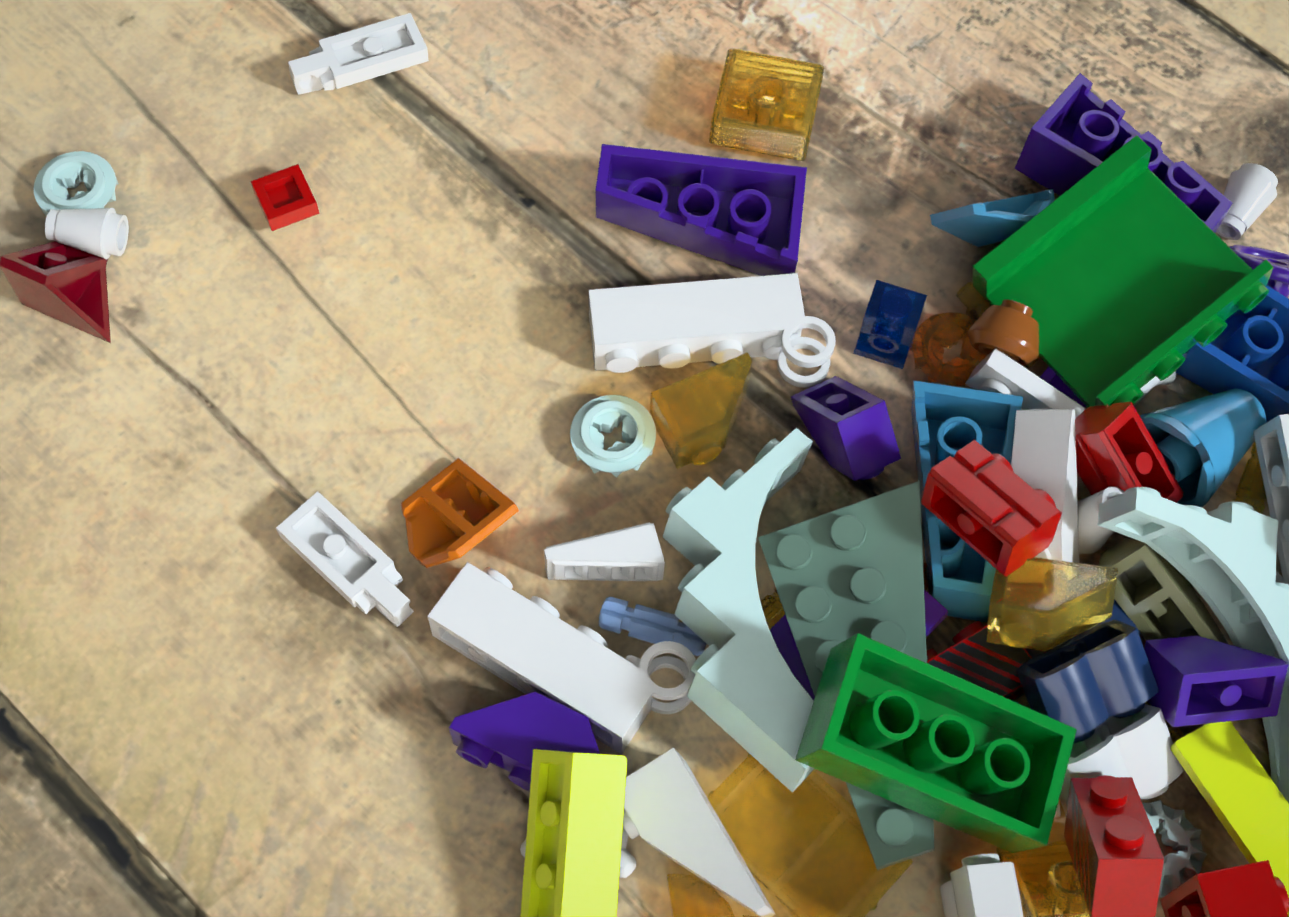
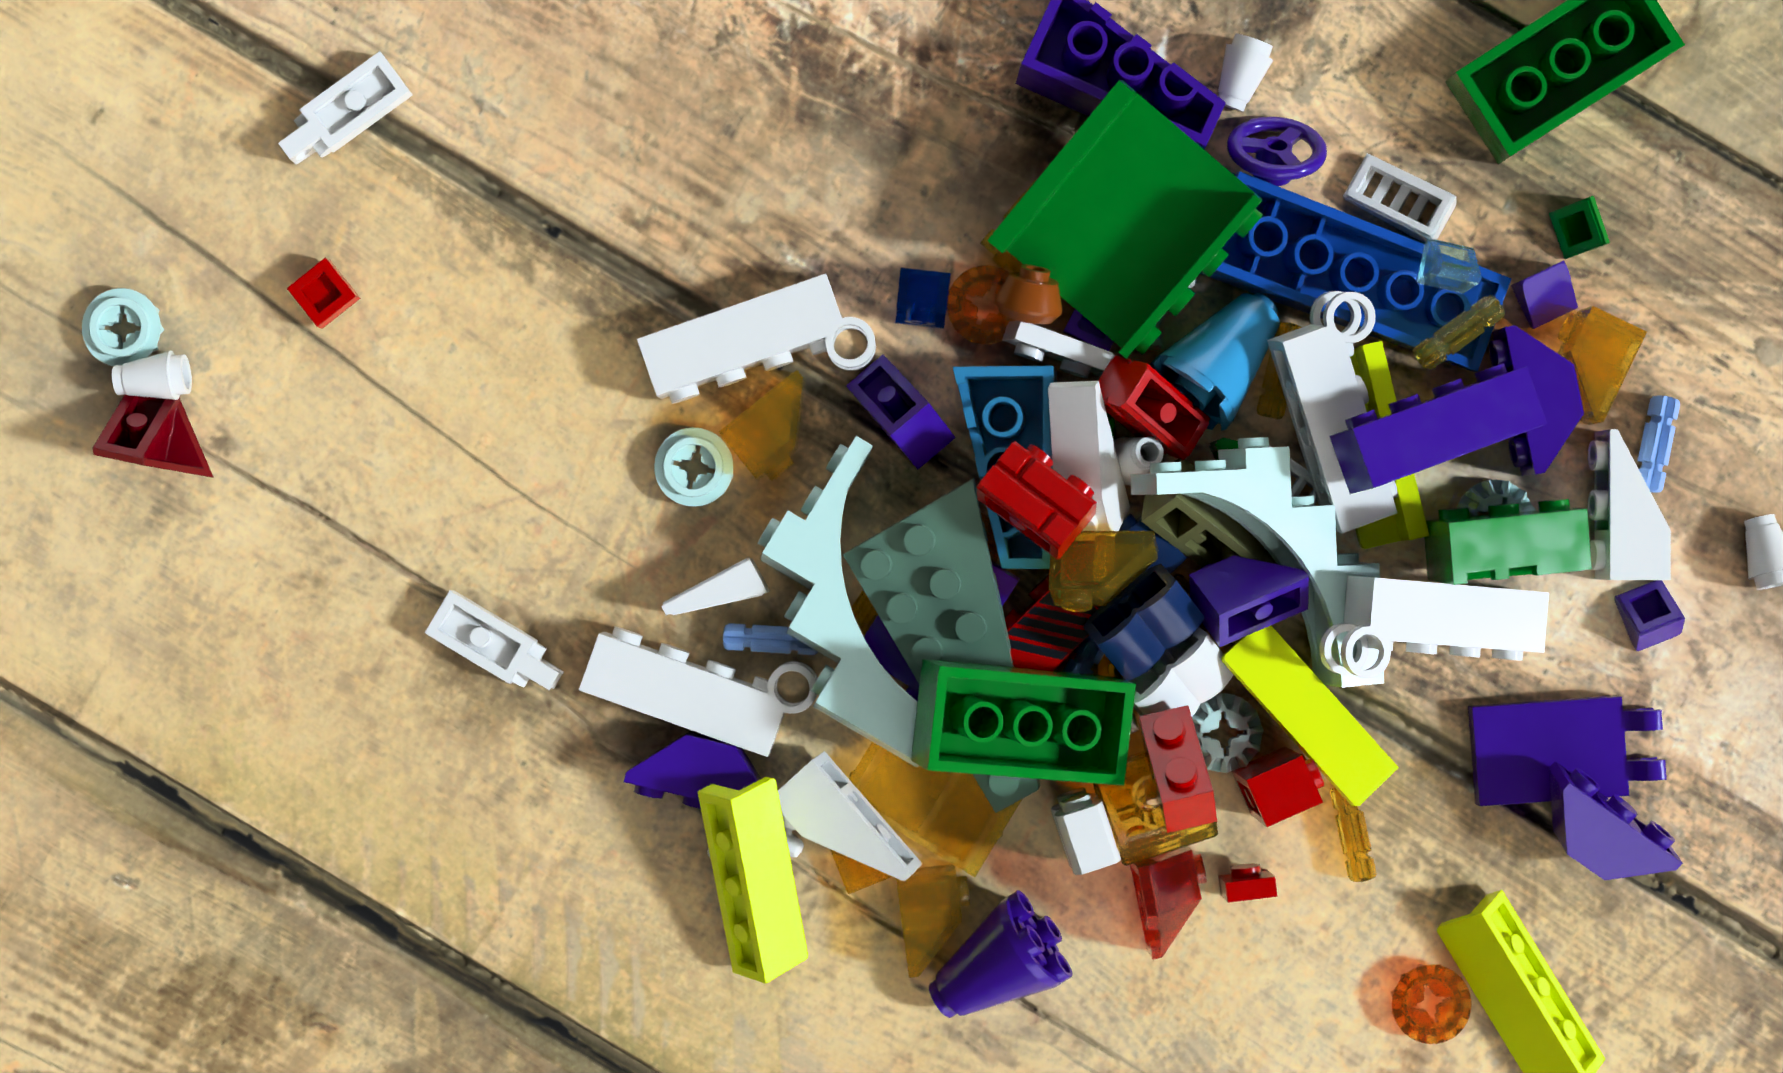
camera: 15 degrees left, 25 degrees up
(453, 514) = (574, 580): orange slope -> none
(706, 204) = (737, 212): dark purple wedge -> none
(766, 104) = (735, 52): clear yellow brick -> none
(993, 220) = (1008, 156): dark azure slope -> none

